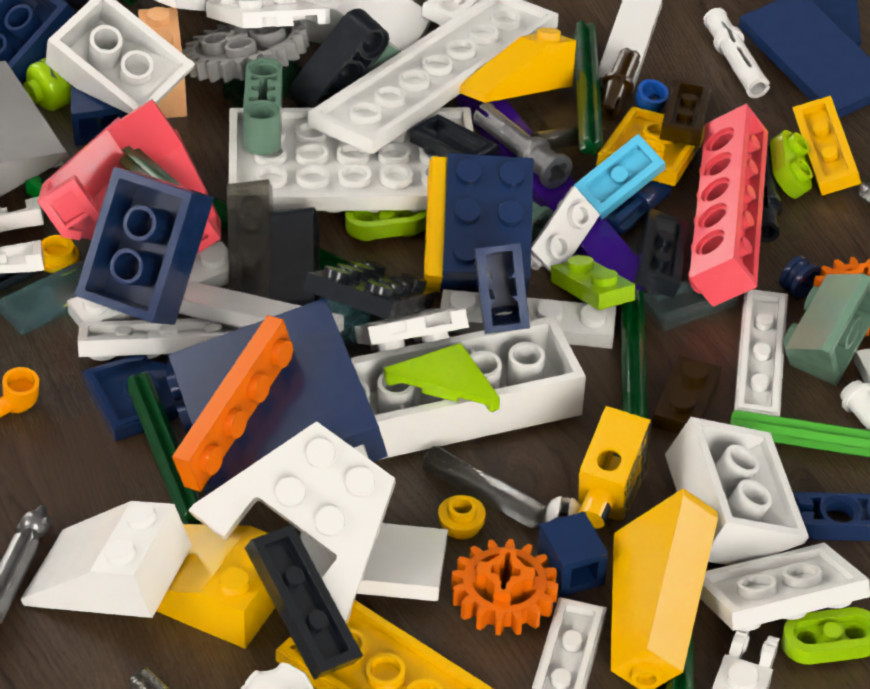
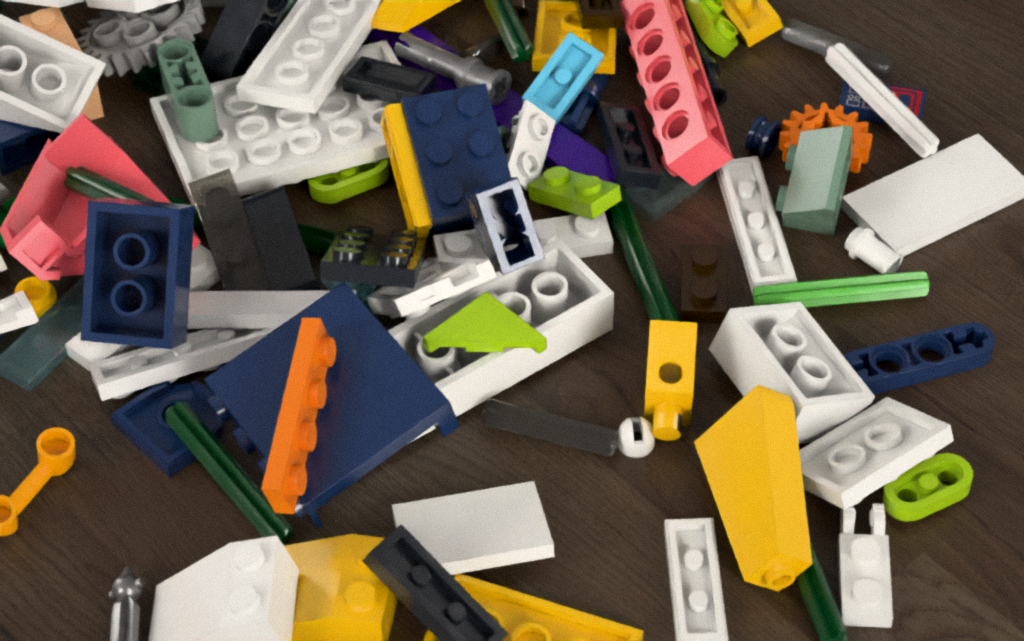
camera: 15 degrees left, 5 degrees up
(322, 491) = (416, 482): white wing -> none
(461, 516) = (544, 472): yellow plate -> none
(528, 591) = (611, 524): orange gear -> none
(574, 552) = (661, 473): dark blue brick -> none

